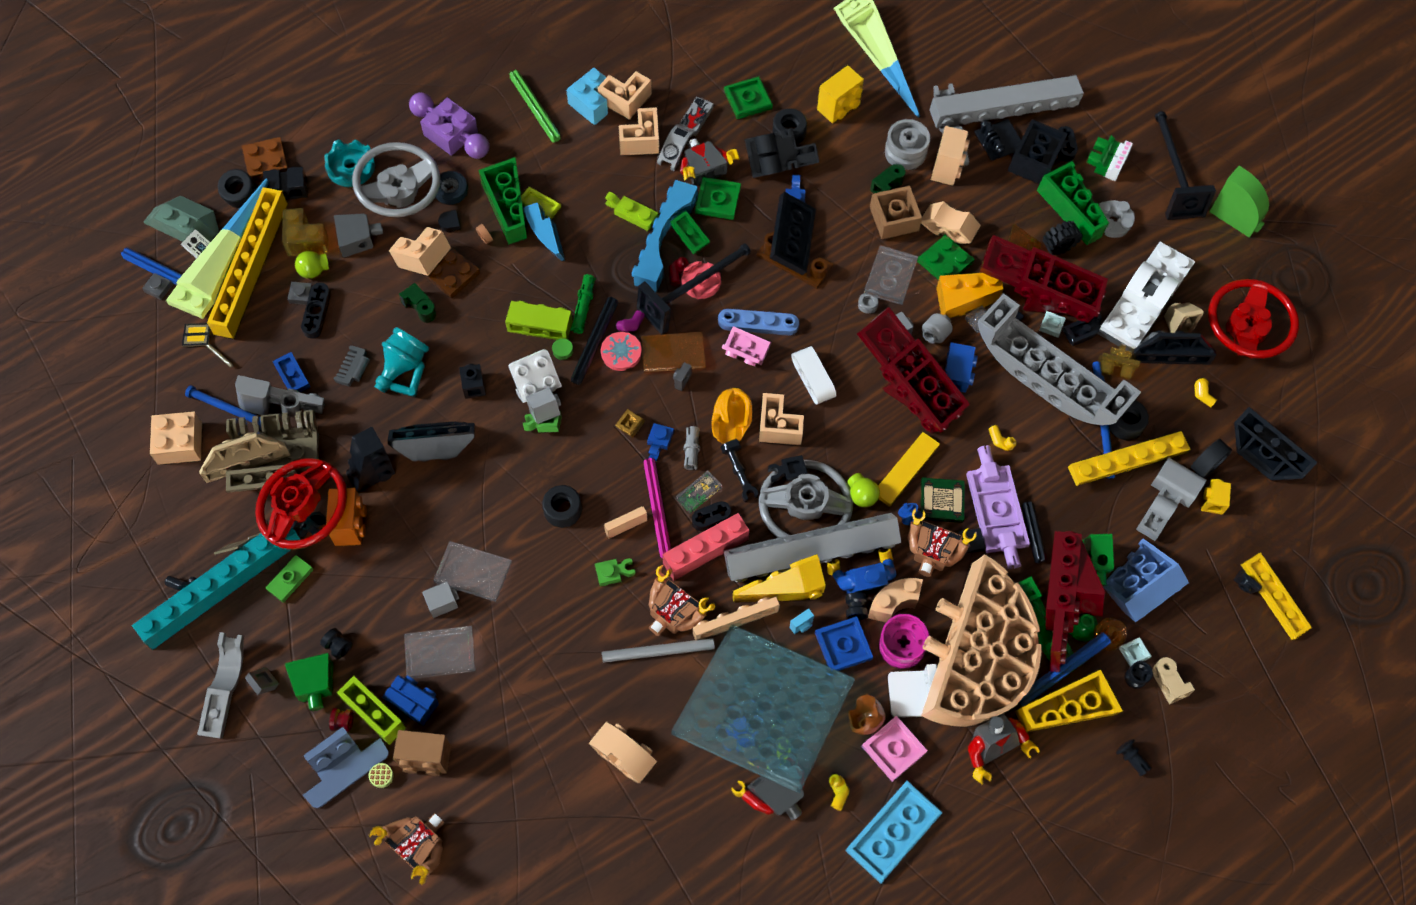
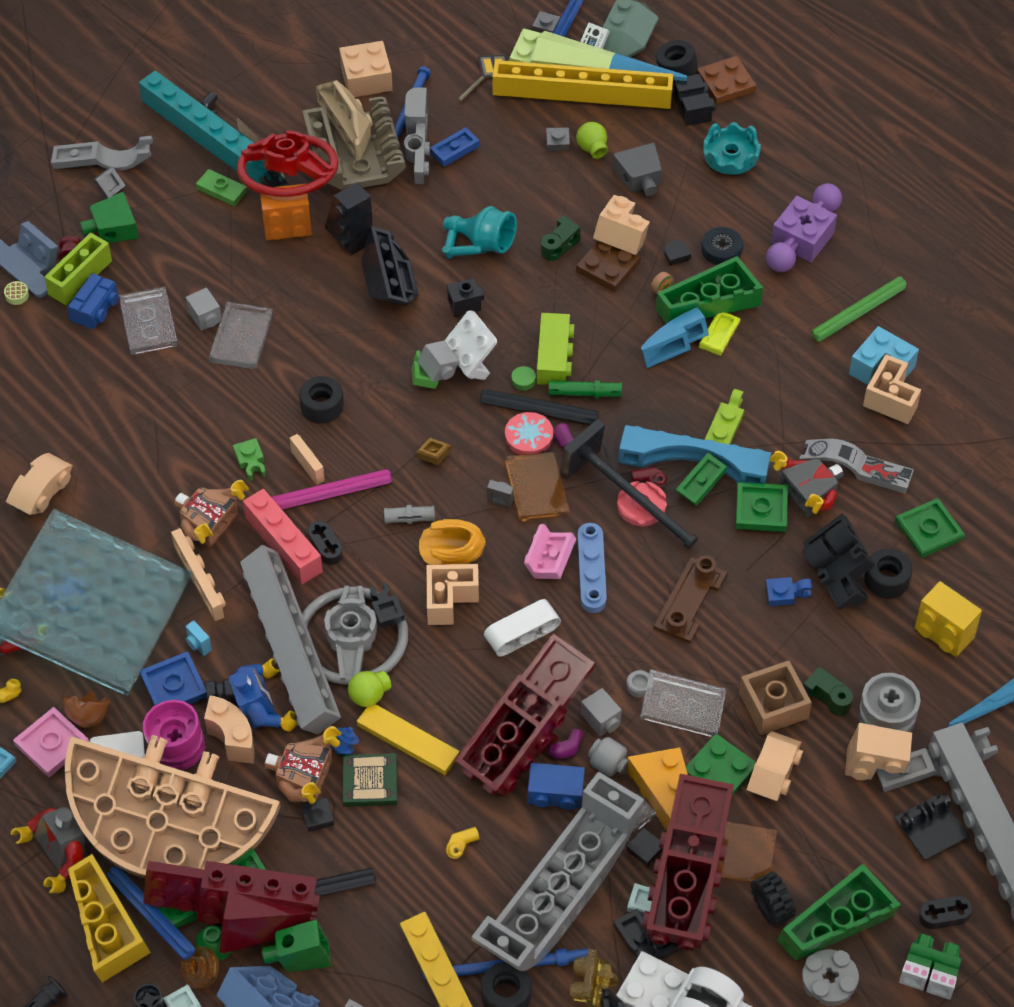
camera: 85 degrees right, 10 degrees down
(301, 236) = (628, 120): clear yellow brick -> none
(318, 319) = (545, 149): black beam -> none
(336, 643) = (148, 235): black wheel -> none
(356, 367) = (473, 201): dark grey piece -> none
(408, 179) = (709, 192): light grey piece -> none
(422, 752) = (33, 313): medium nougat brick -> none
(640, 137) = (835, 417): light nougat brick -> none
(658, 650) = (159, 509): light grey piece -> none
(659, 439) = (418, 483): blue plate -> none
(699, 492) = (355, 528): clear tile -> none
(730, 449) = (411, 551): black piece -> none
(793, 233) = (718, 584): black plate -> none
(798, 583) = (245, 624): yellow wedge -> none
(997, 508) = (361, 838): lavender plate -> none
(1037, 151) = (916, 866): black slope -> none

